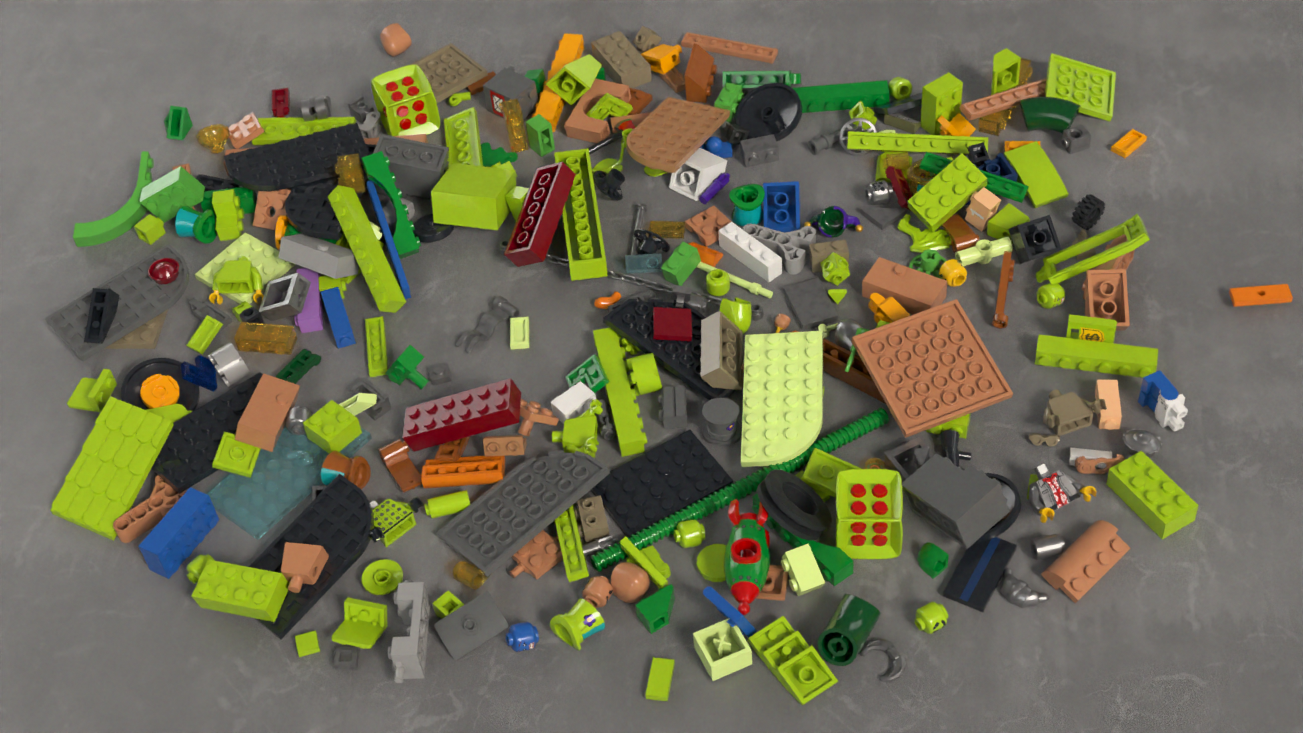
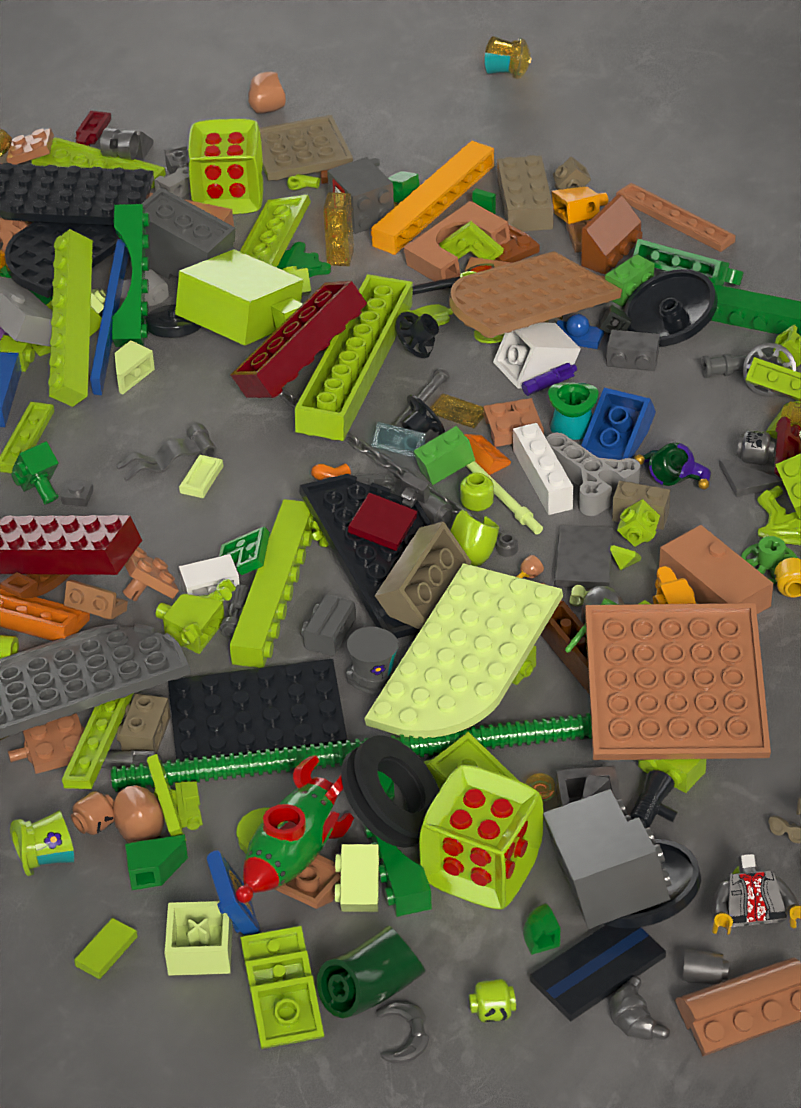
camera: 20 degrees right, 5 degrees down
(350, 172) = (99, 223): clear yellow brick -> none
(422, 268) = (132, 365): none -> yellowish green slope
(540, 135) = (366, 250): bright green brick -> none
(575, 78) = (444, 192): lime slope -> none
(644, 374) = (314, 571): lime brick -> none
(689, 533) = (251, 784): lime head -> none

